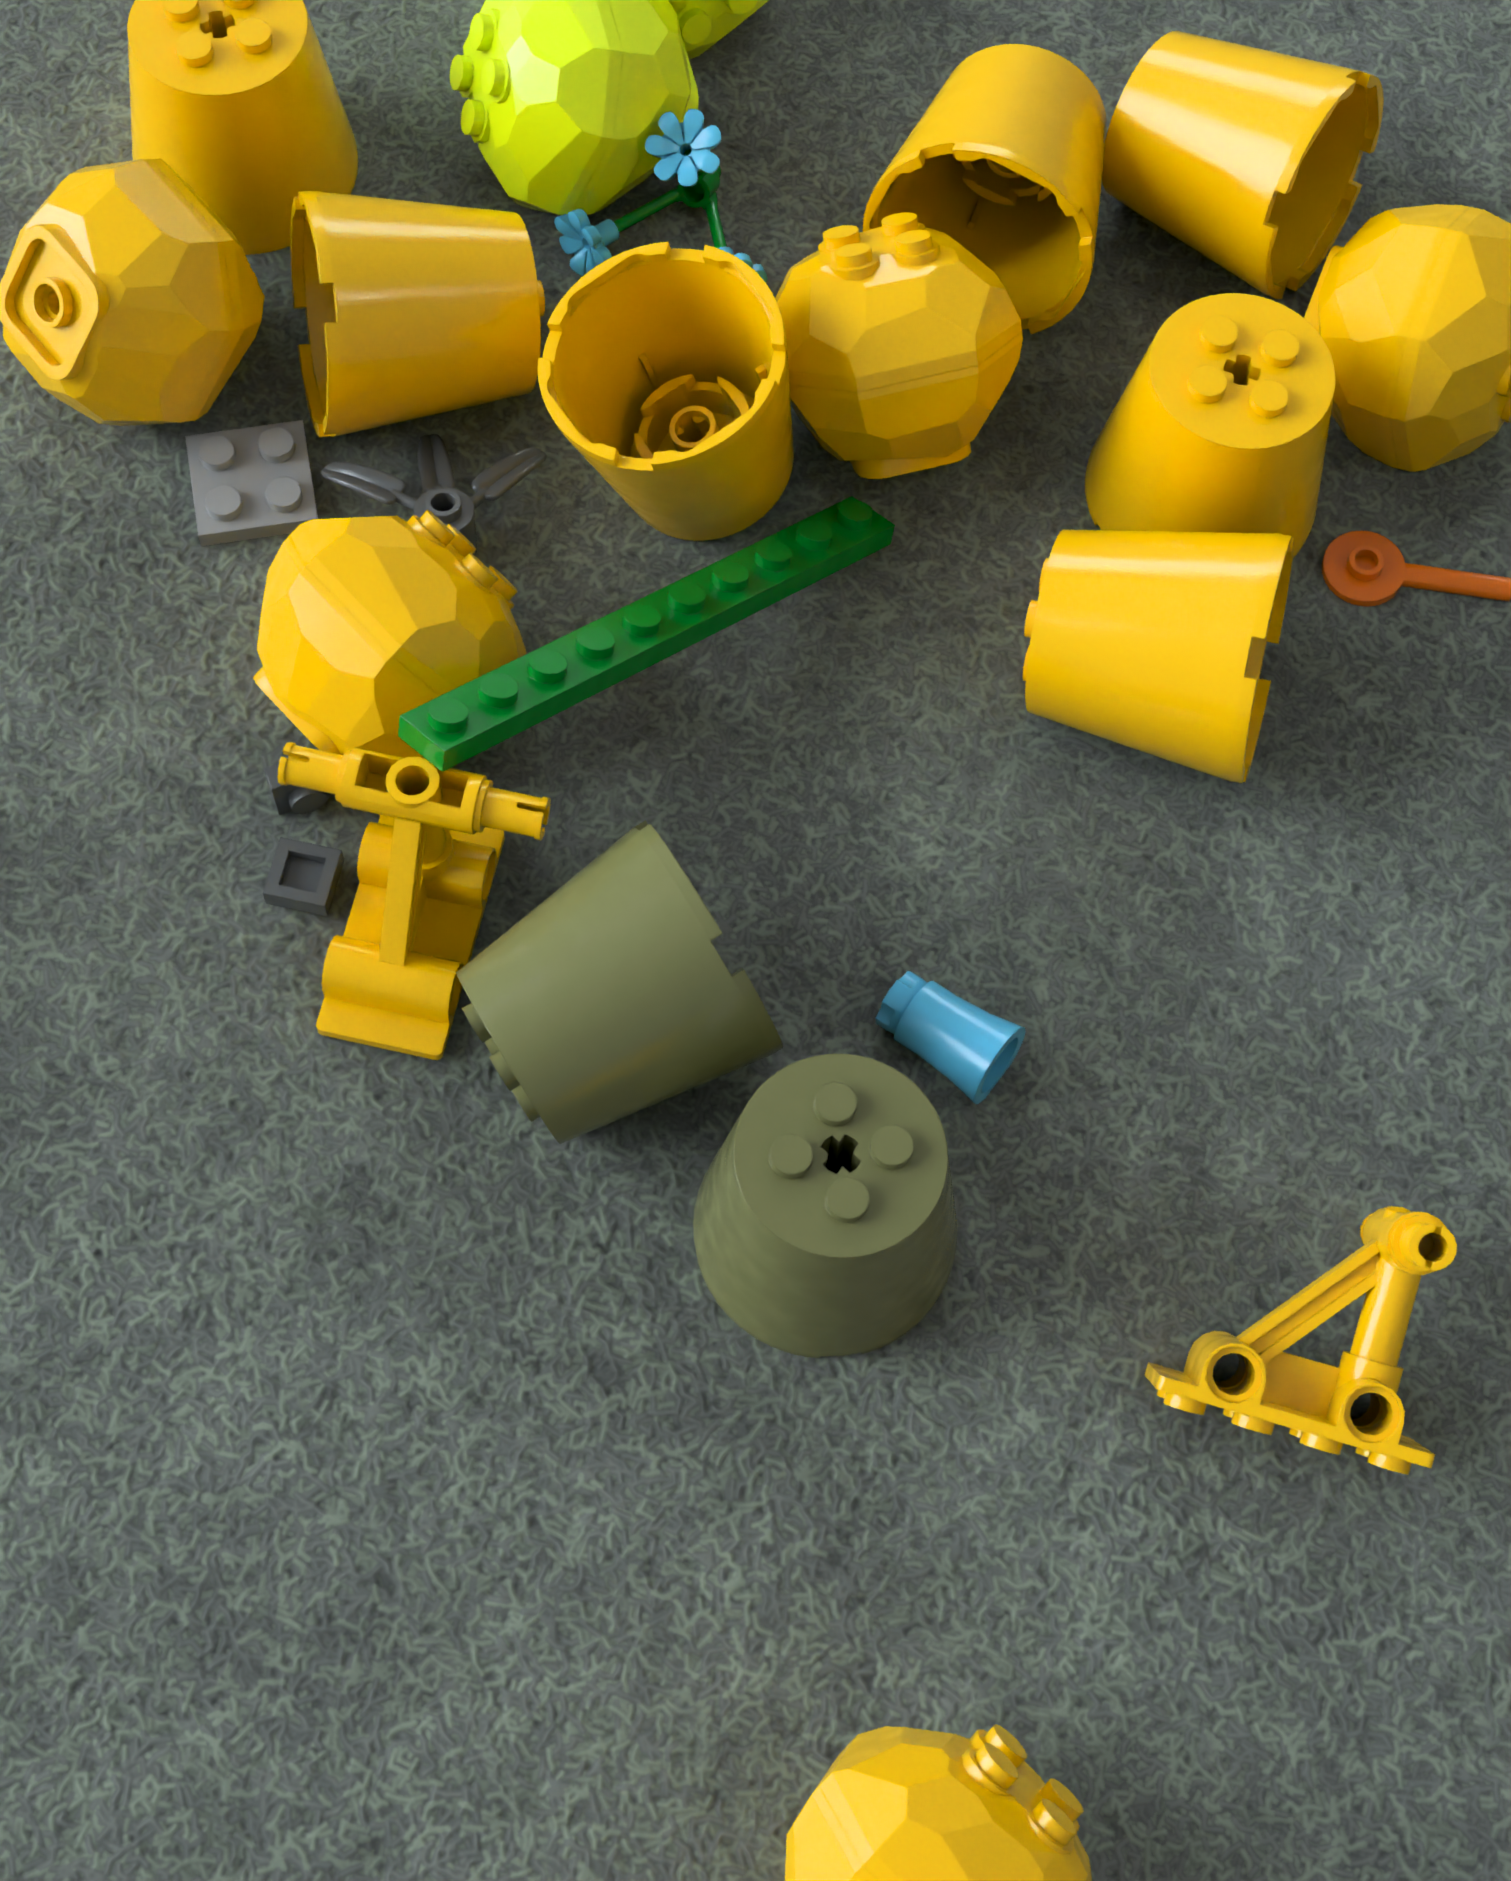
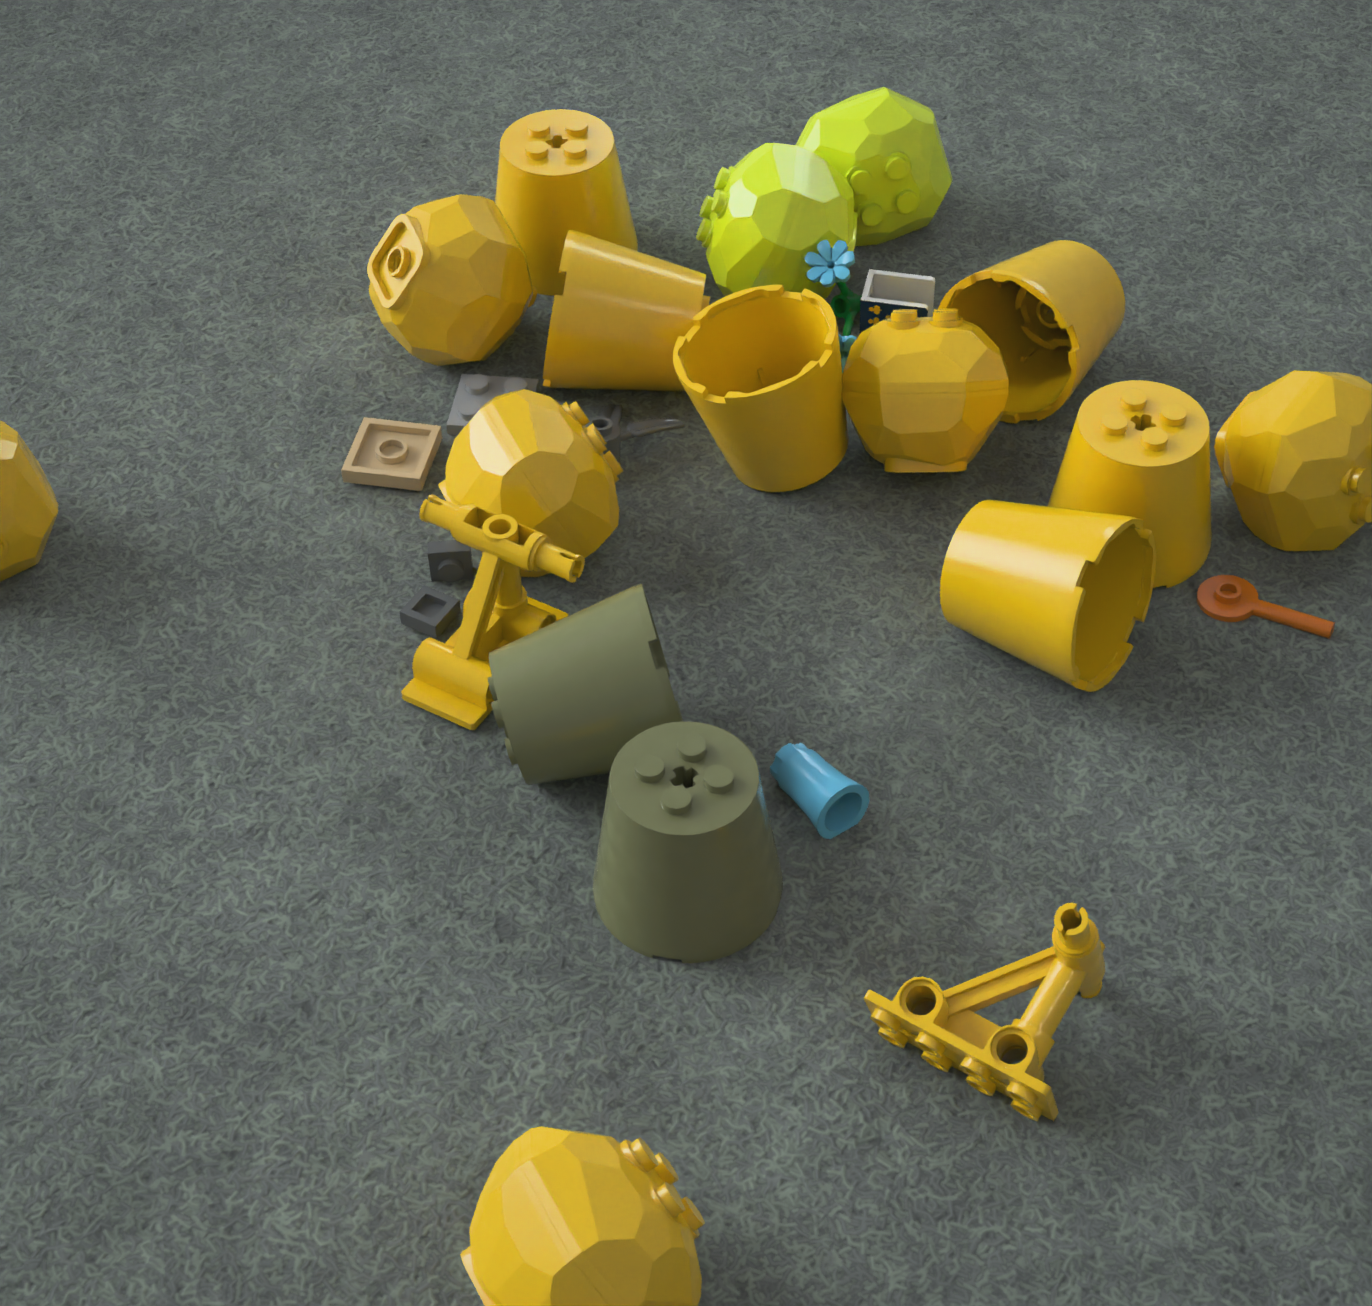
camera: 25 degrees right, 20 degrees down
(137, 608) = (392, 454): none -> tan plate
(641, 634) = (697, 504): green plate -> none
(778, 200) = (894, 291): none -> white piece
(1243, 153) = (1214, 329): yellow cone -> none

